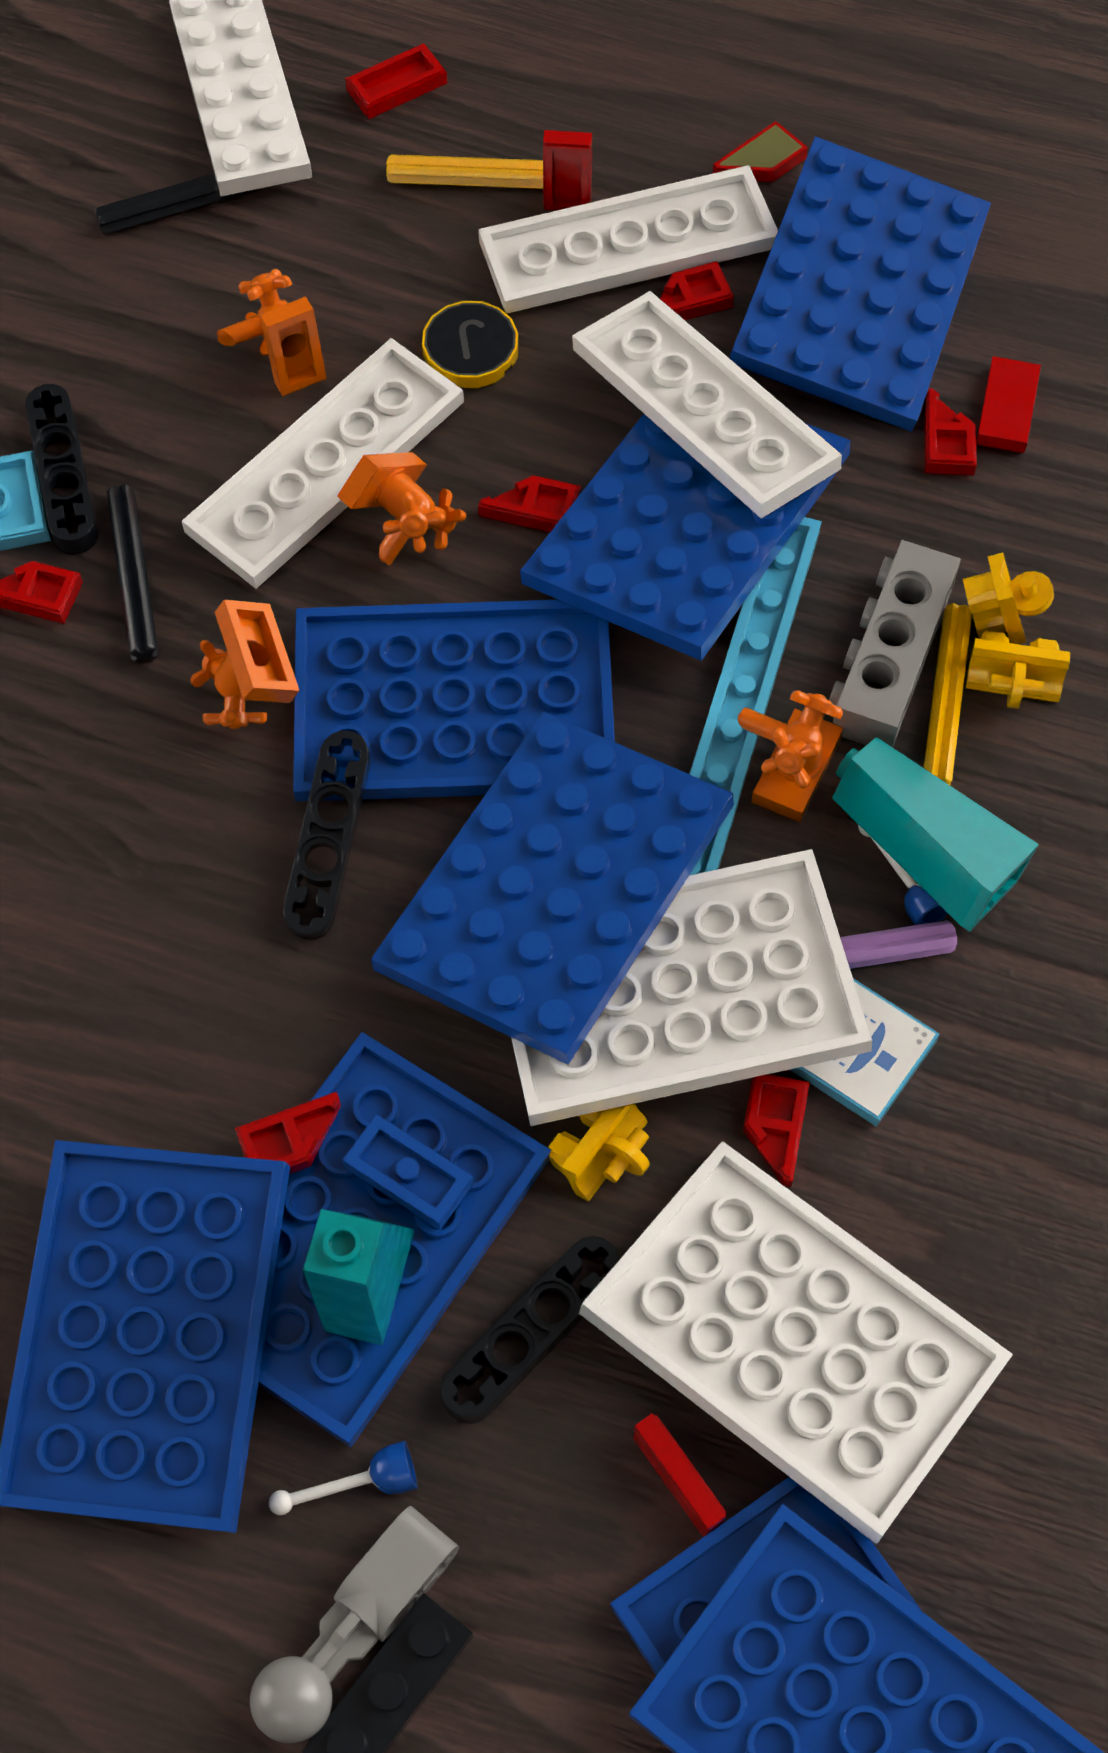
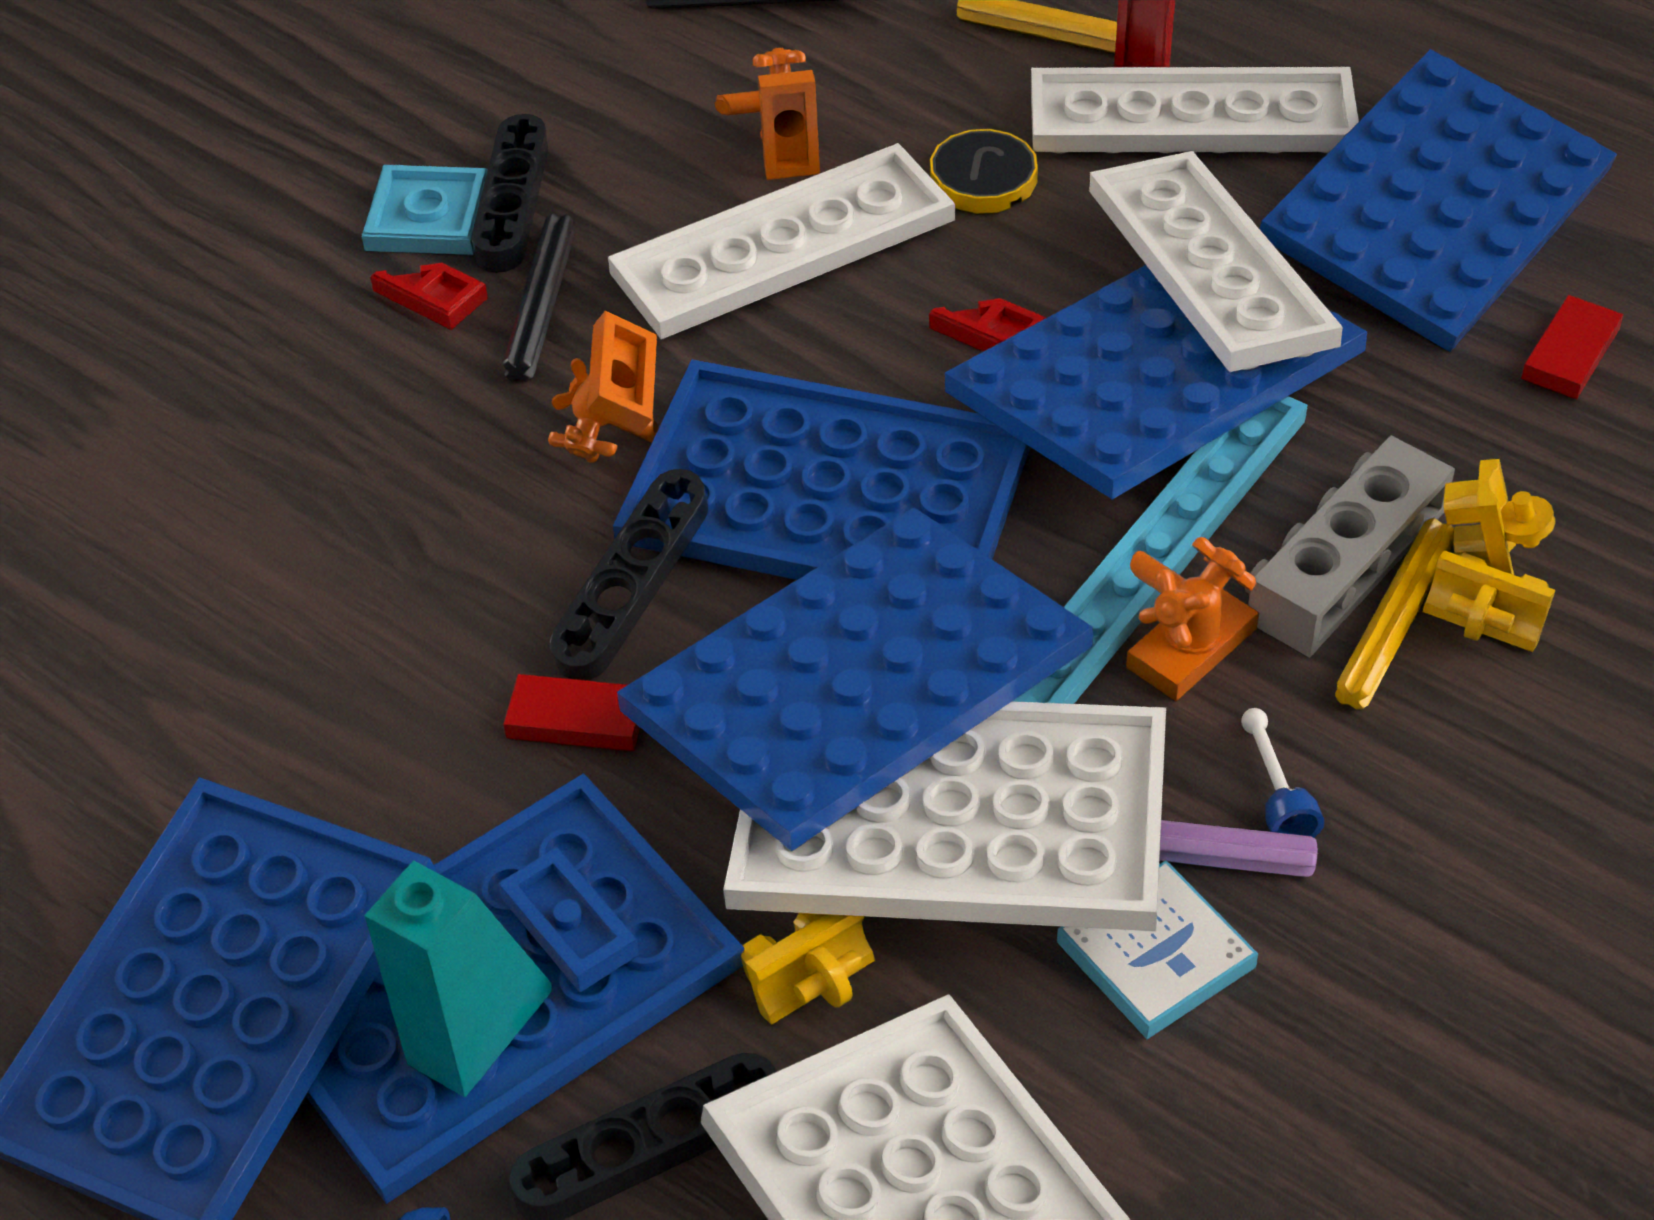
camera: 20 degrees right, 15 degrees down
(291, 1134) = (465, 849): red tile -> none
(324, 972) = (569, 713): none -> red tile
(390, 483) = (845, 270): orange piece -> none
(698, 291) = (1253, 173): red tile -> none
(767, 153) = (1374, 66): tile -> none
(776, 1122) = (1026, 998): red tile -> none
(933, 831) = (1327, 738): teal slope -> none
(947, 439) = (1488, 365): red tile -> none

